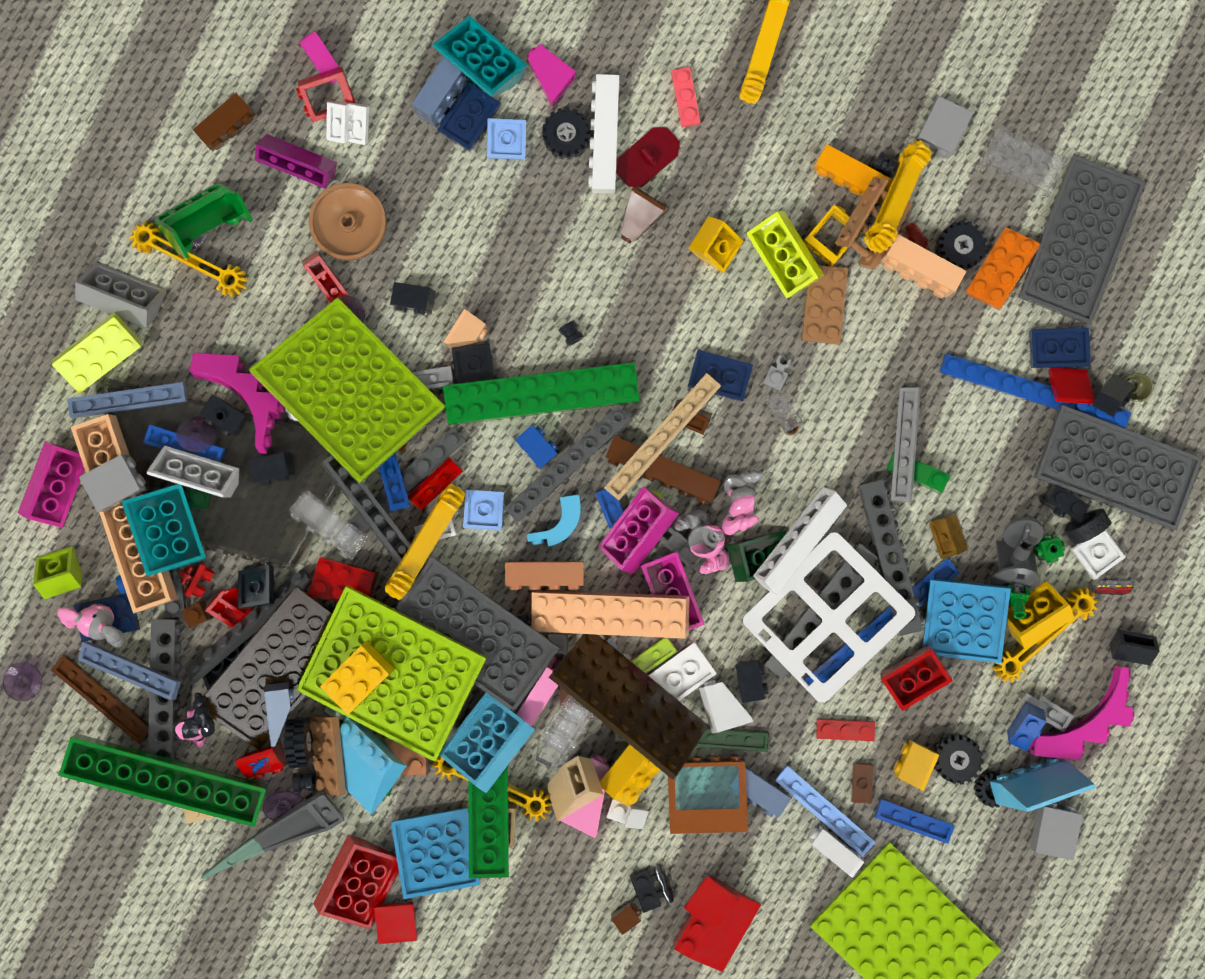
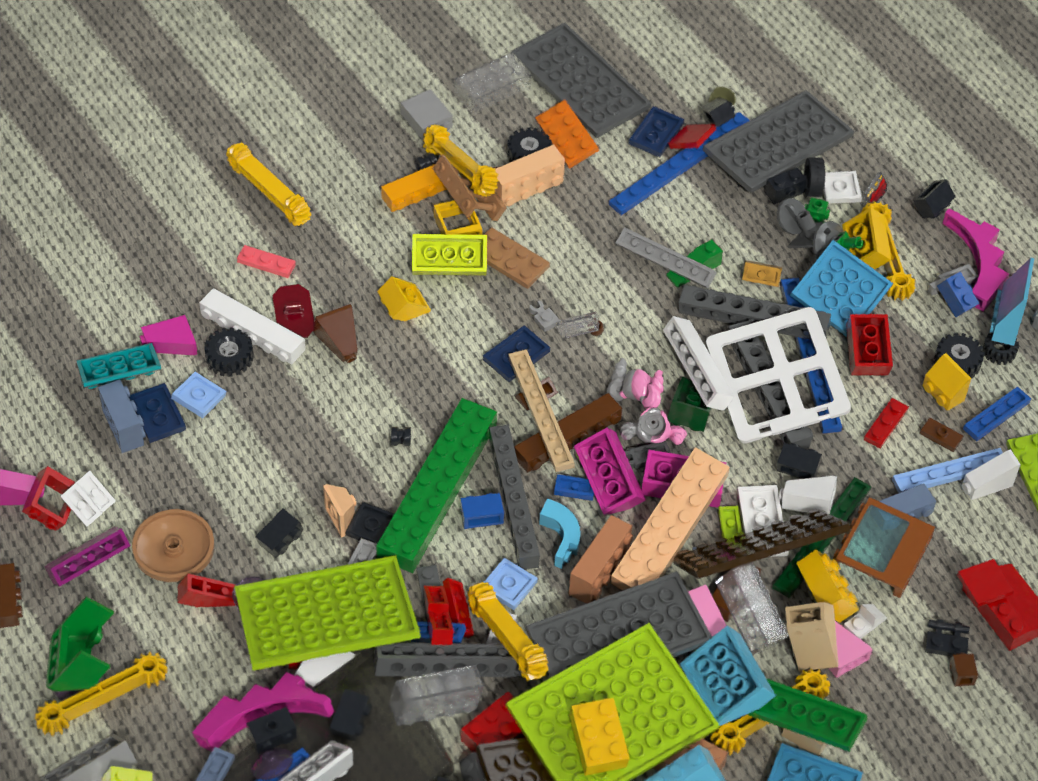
camera: 60 degrees left, 35 degrees down
(406, 477) = (438, 616): none -> red slope

